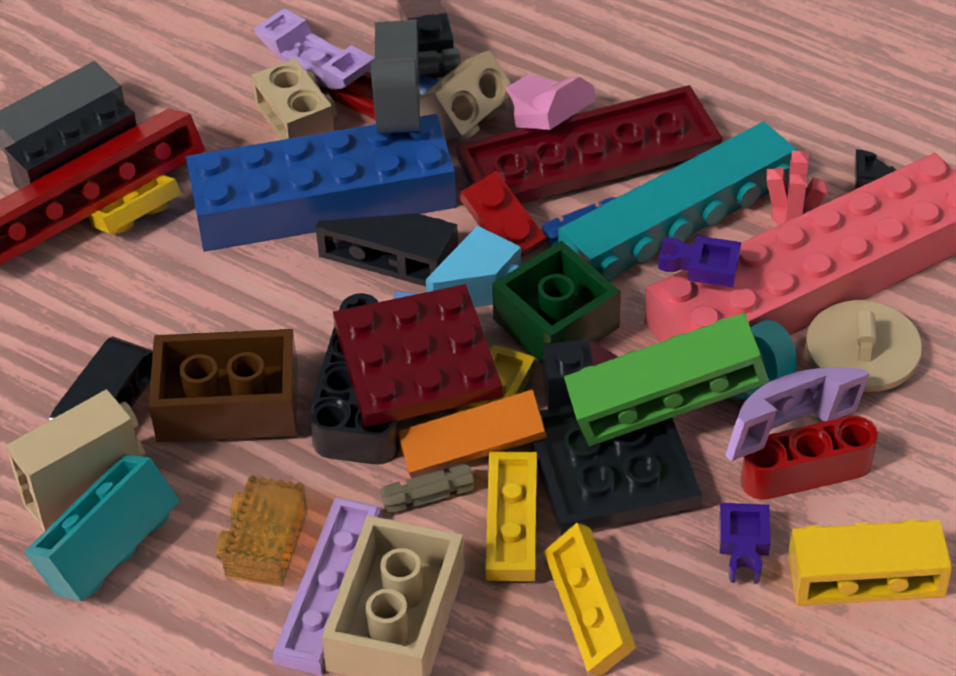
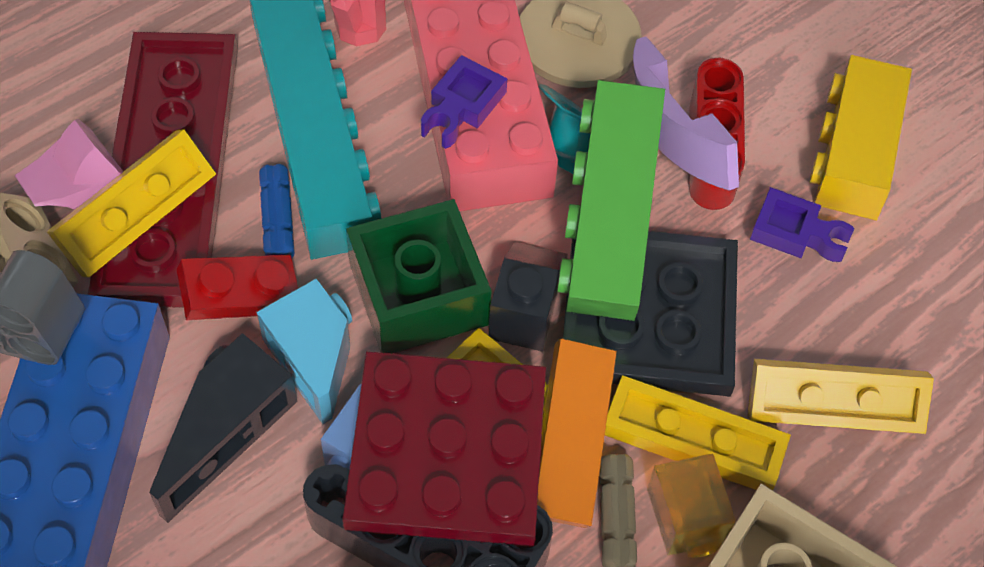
camera: 75 degrees left, 10 degrees up
(452, 511) = (691, 506): none -> clear yellow brick
(530, 131) = (131, 203): none -> yellow plate

